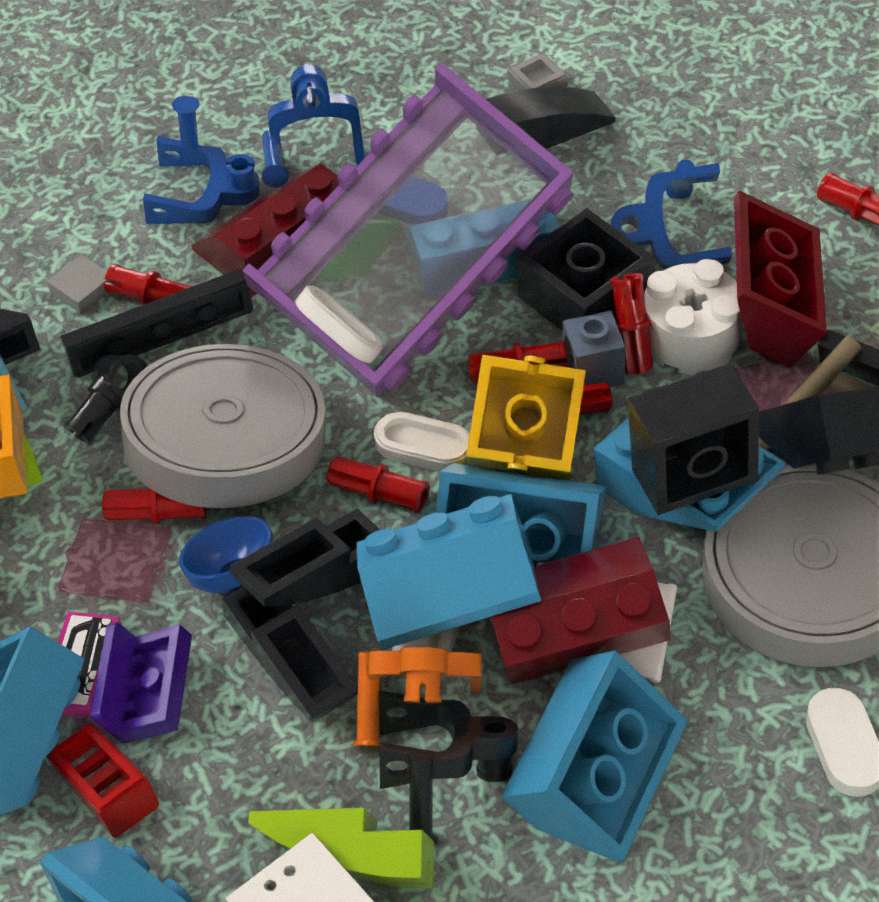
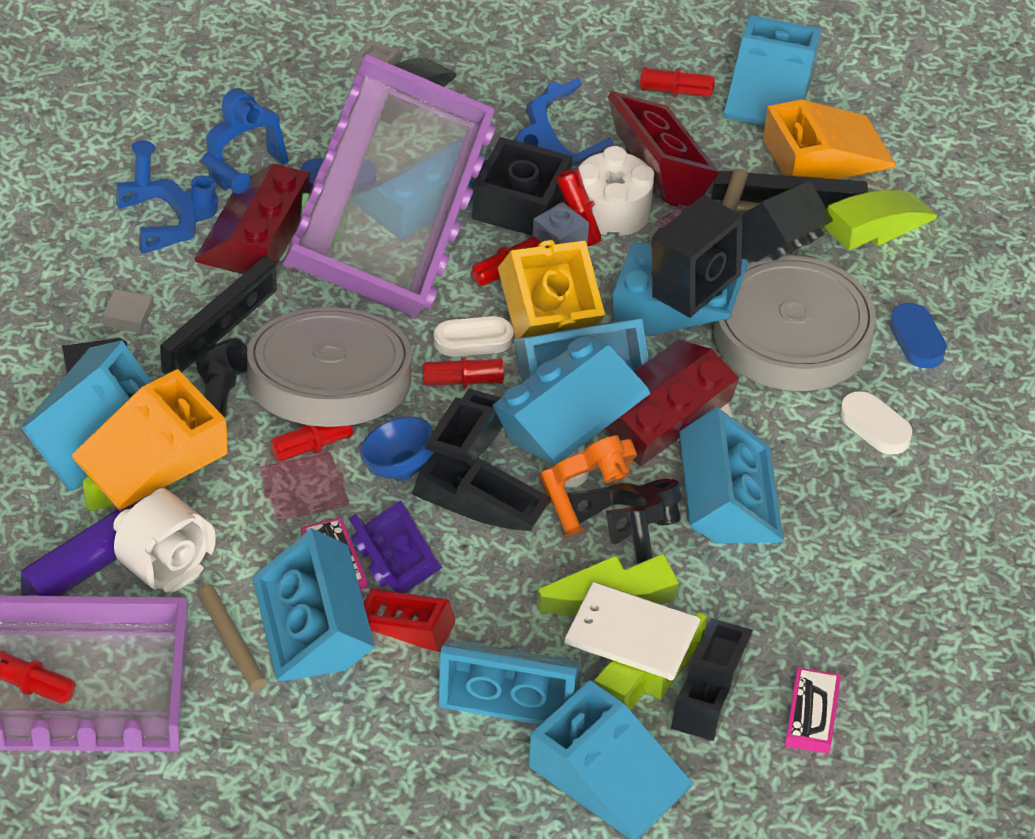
camera: 35 degrees left, 5 degrees down
(140, 285) = (186, 296): red axle -> none
(339, 324) = (376, 268): white tile -> none

